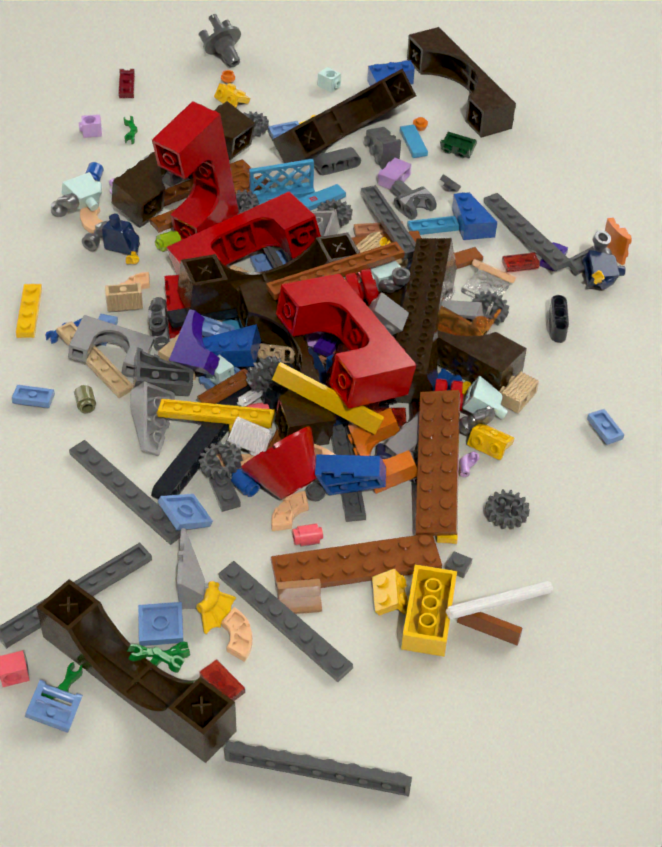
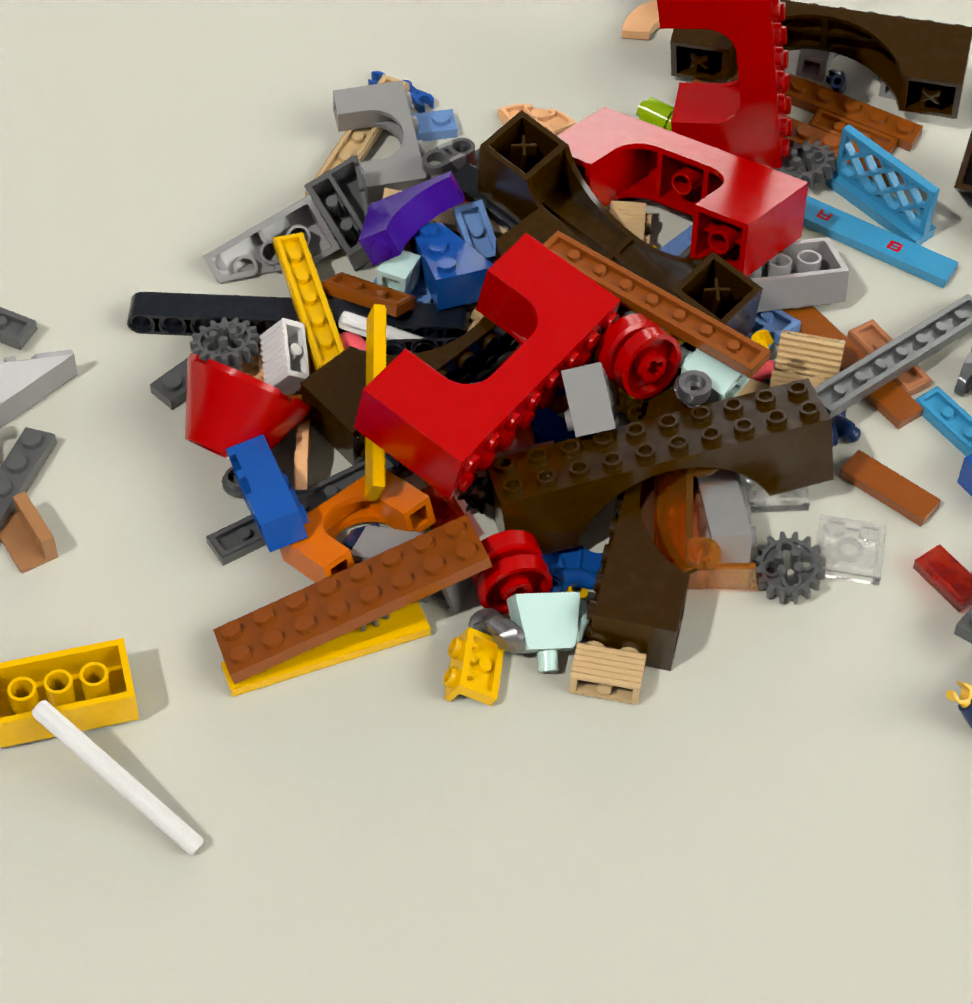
camera: 65 degrees right, 5 degrees up
(29, 311) = (413, 37): yellow plate -> none
(33, 396) = (247, 109): medium blue plate -> none
(85, 398) = (271, 161): olive brick -> none
(117, 237) = (615, 57): dark blue torso -> none
(123, 297) = (488, 108): tan brick -> none
(125, 490) = (130, 275): dark grey plate -> none
(185, 511) = (112, 345): medium blue plate -> none
(262, 374) = (403, 318): dark grey gear -> none
(288, 510) = (179, 463): light nougat tile -> none
(307, 535) = (143, 499): coral brick -> none
(343, 210) = (895, 286): dark grey gear -> none
(357, 561) = (129, 584): dark orange plate -> none
(389, 592) = (92, 627): yellow bracket -> none
(459, 563) = (186, 710): dark grey plate -> none
(466, 462) = (406, 652): lavender arm -> none
(492, 626) = (73, 796): dark orange tile -> none
(494, 271) = (894, 545): light nougat tile -> none
(519, 510) = (347, 730): dark grey gear -> none
(558, 318) = (846, 666): black beam -> none
(605, 426) = (604, 827): medium blue plate -> none

